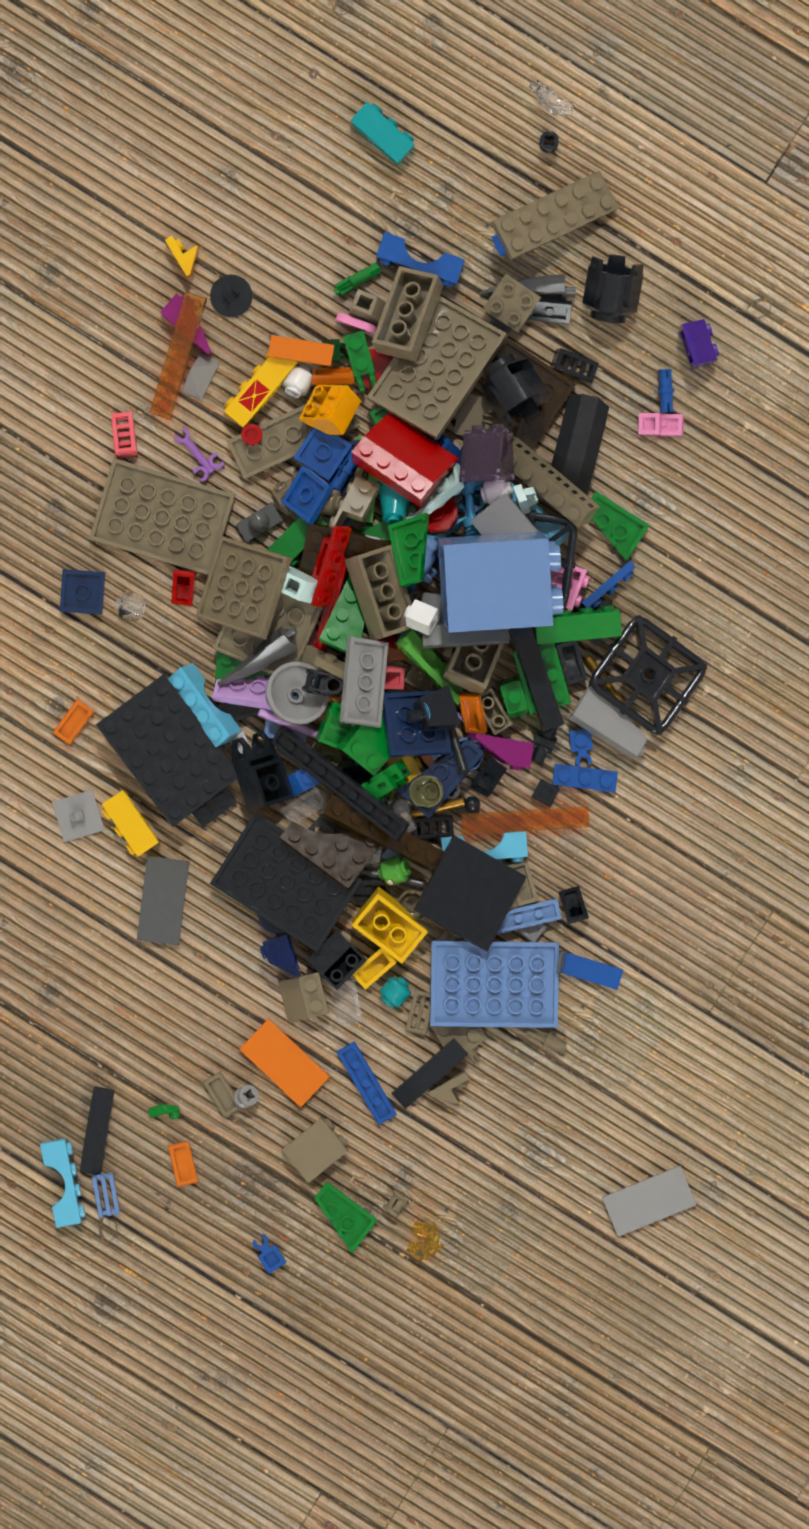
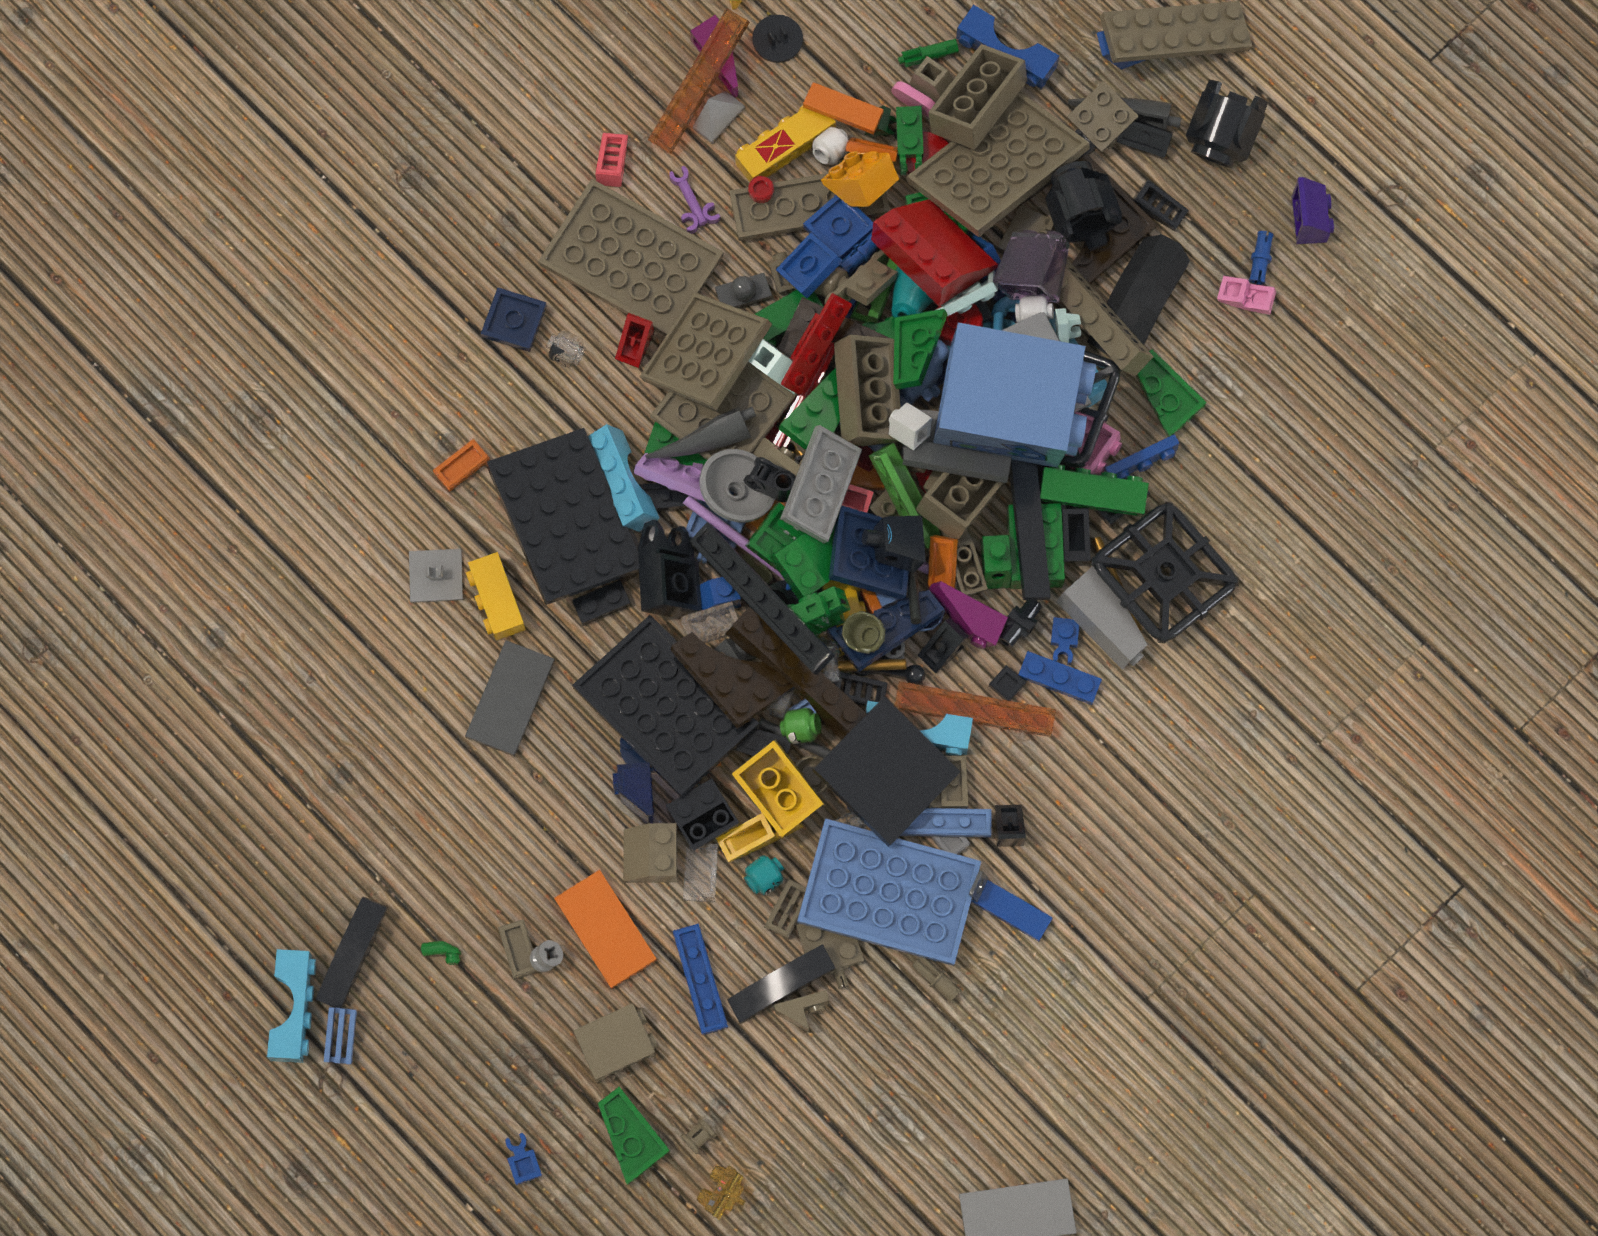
camera: 15 degrees right, 15 degrees down
(183, 1163) = (446, 1022): orange tile -> none

